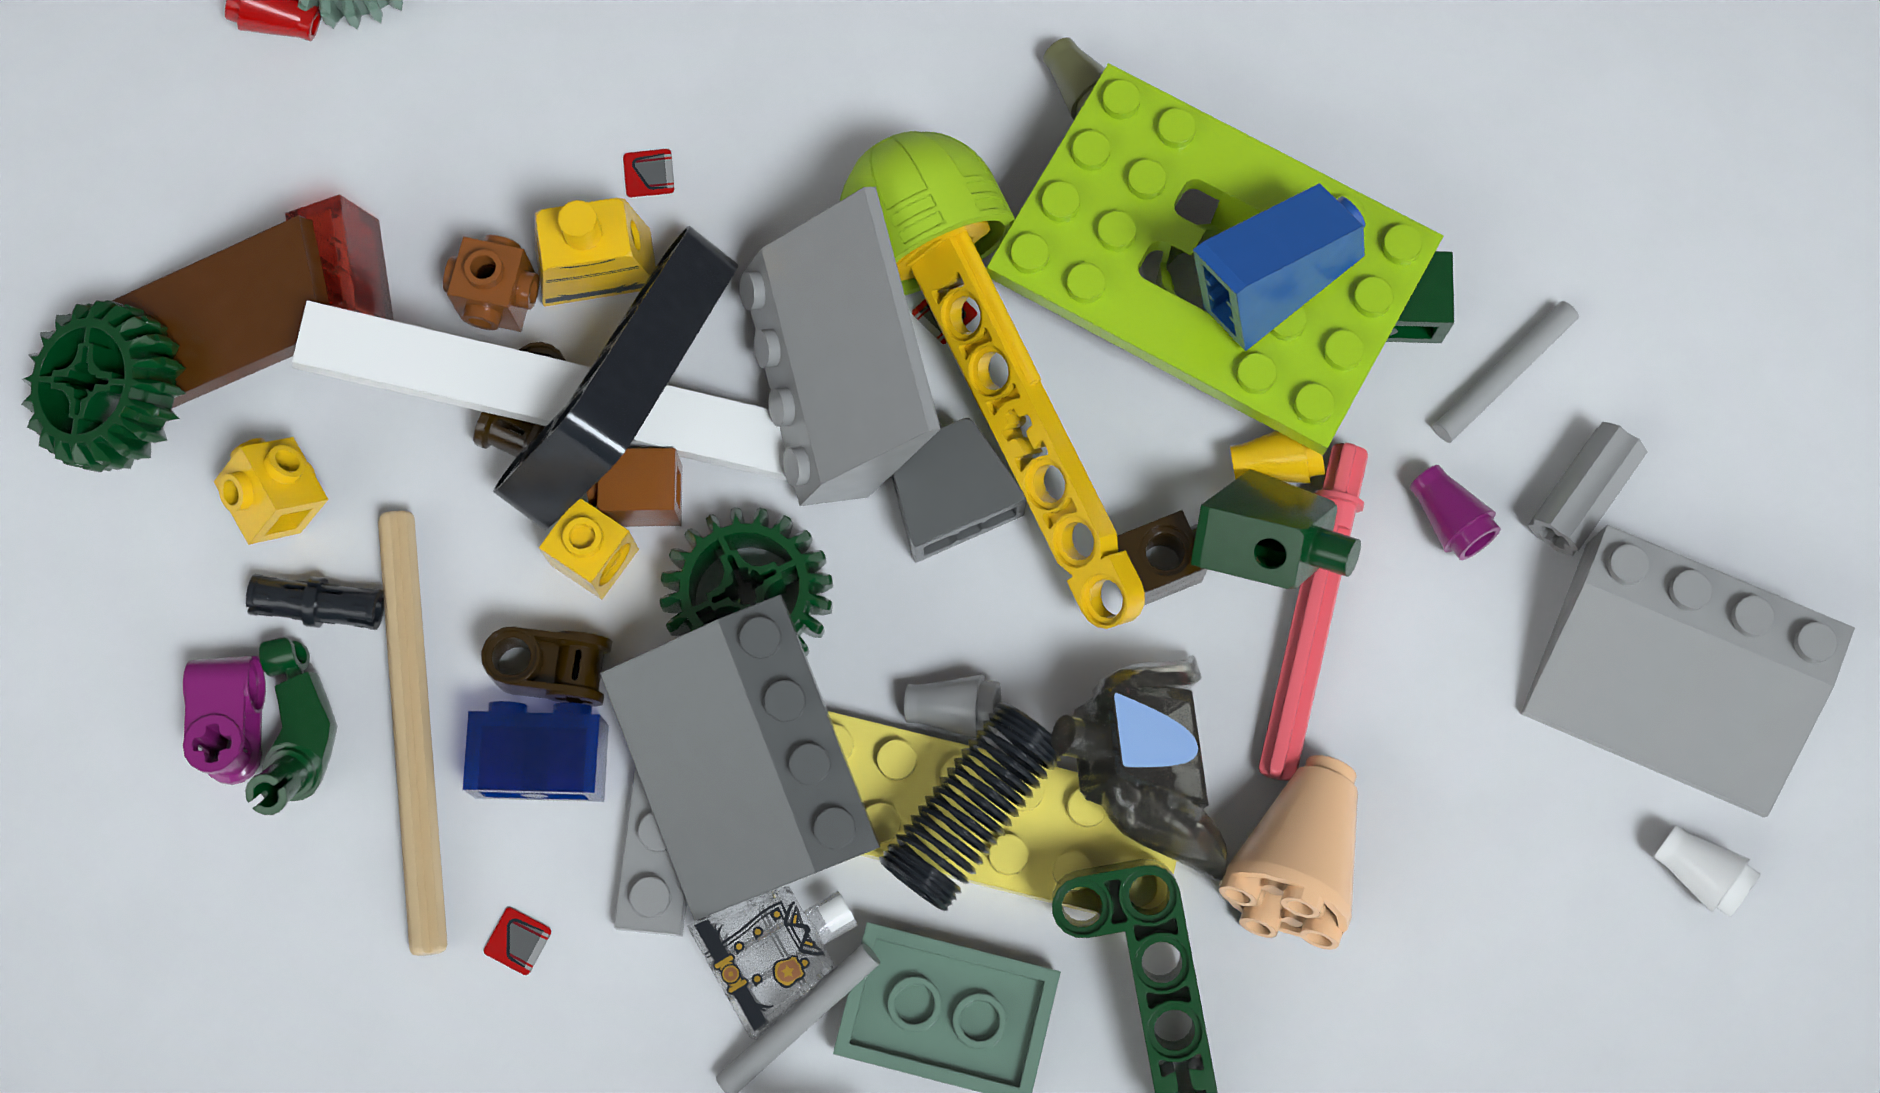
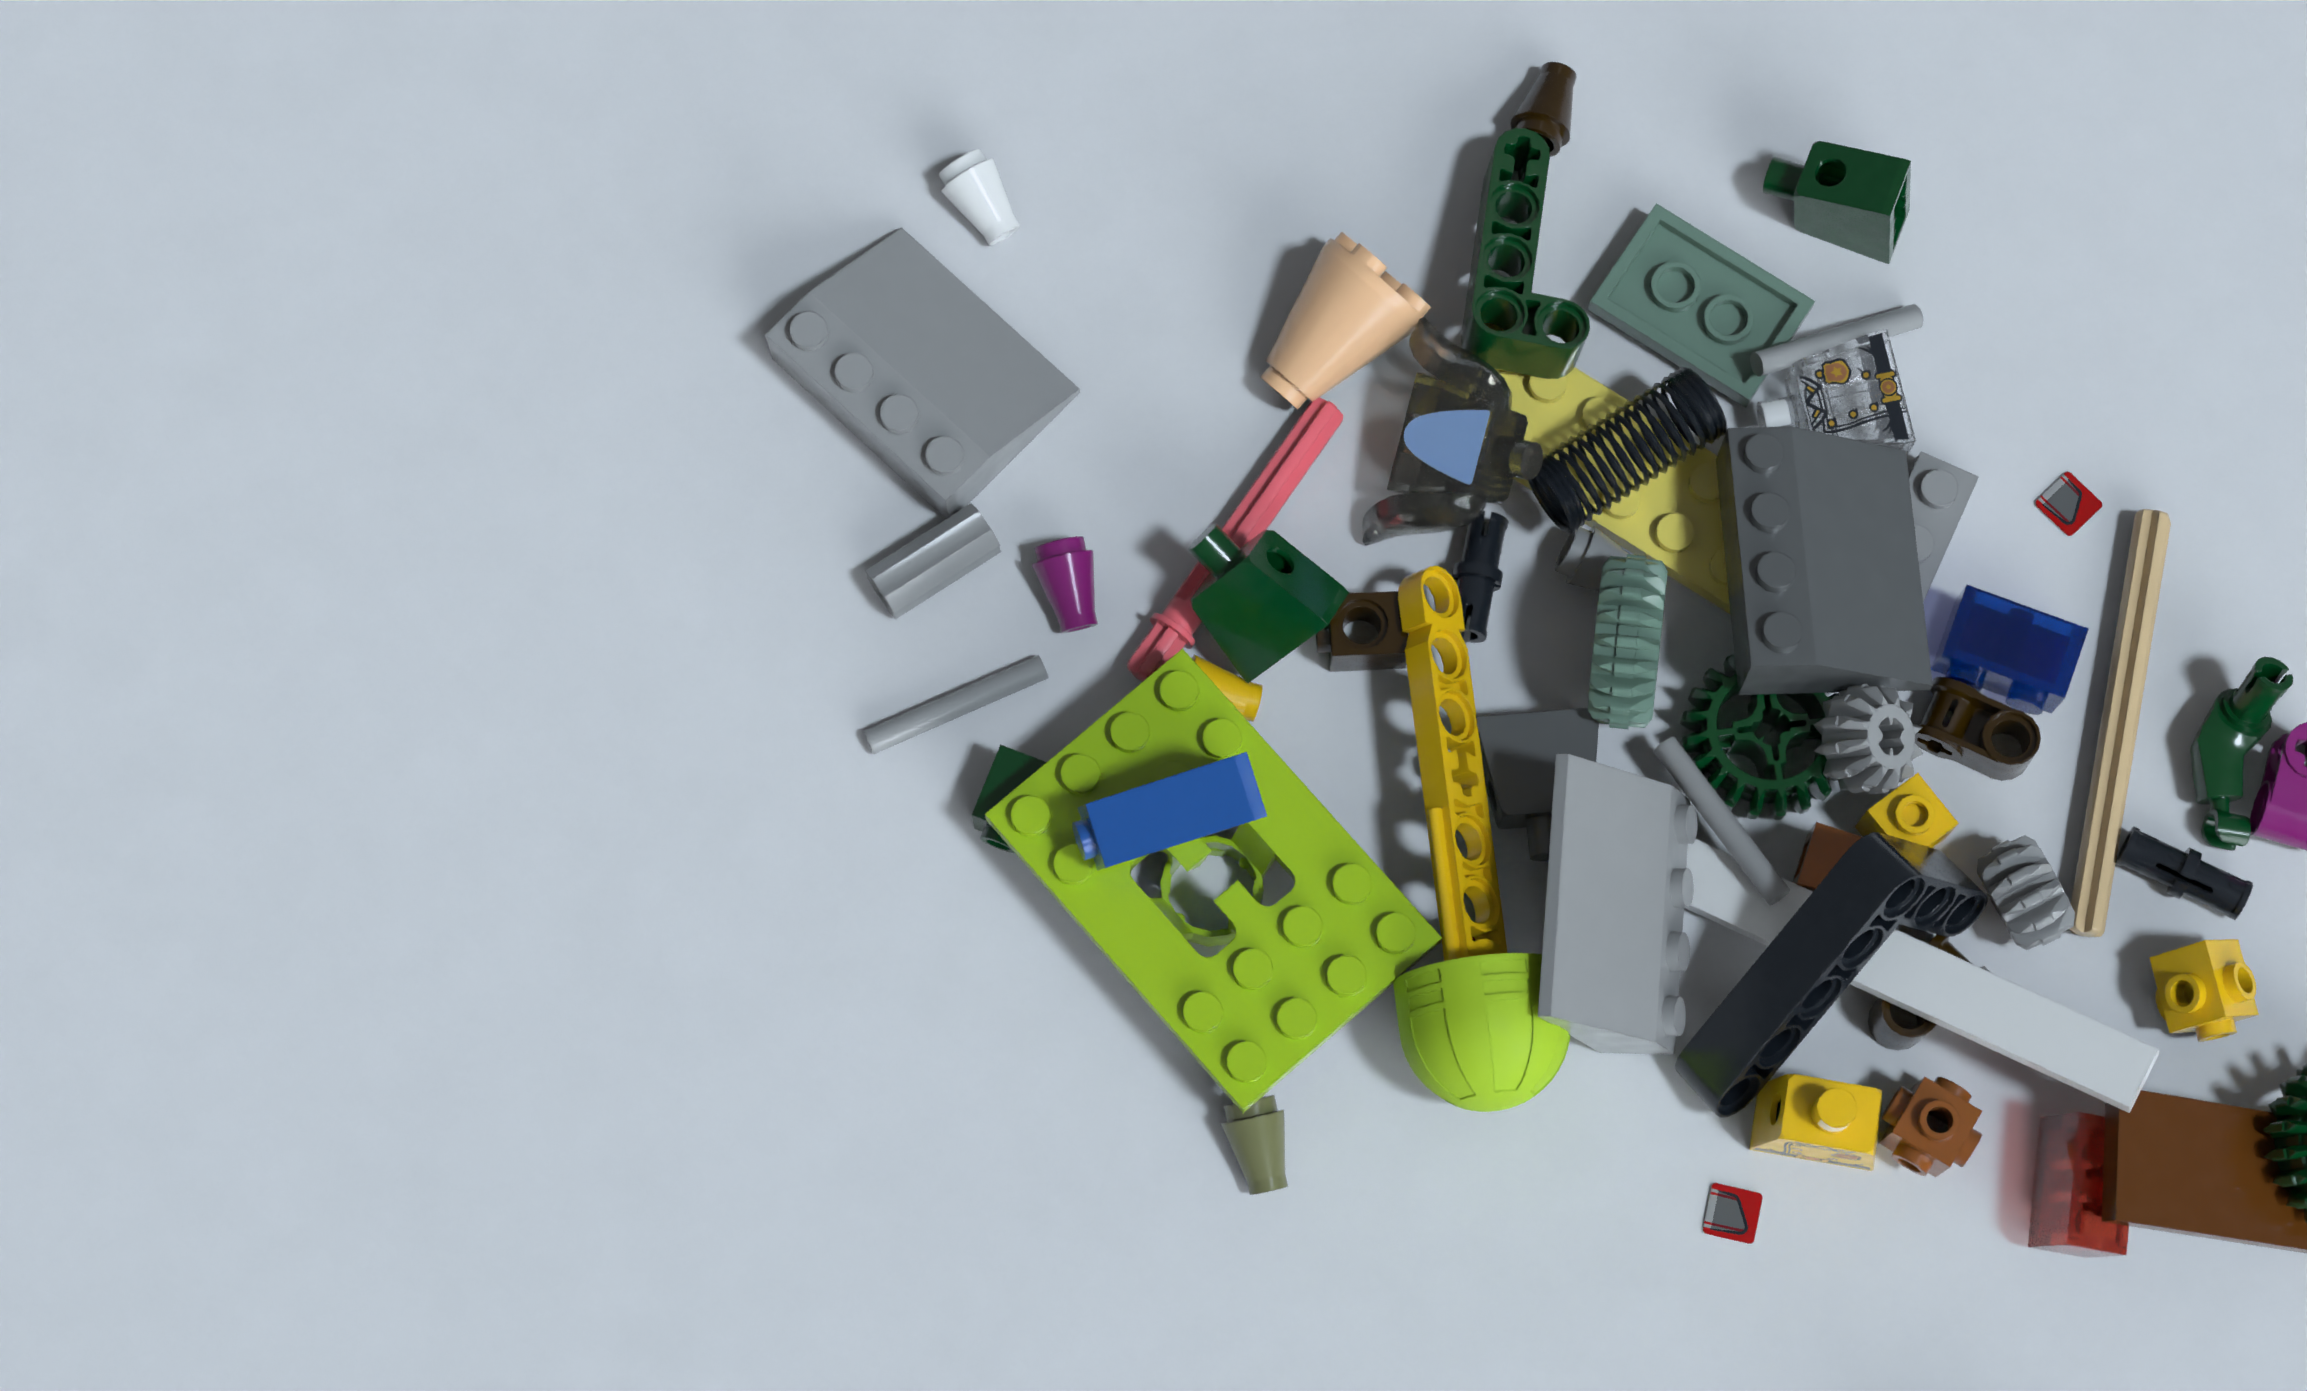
camera: 160 degrees left, 0 degrees up
(459, 515) = (2025, 892): none -> light grey gear
(647, 593) = (1868, 739): none -> light grey gear
(764, 483) = (1722, 821): none -> light grey bar
(908, 609) = (1627, 641): none -> sand green gear
(1070, 650) = (1478, 572): none -> black pin

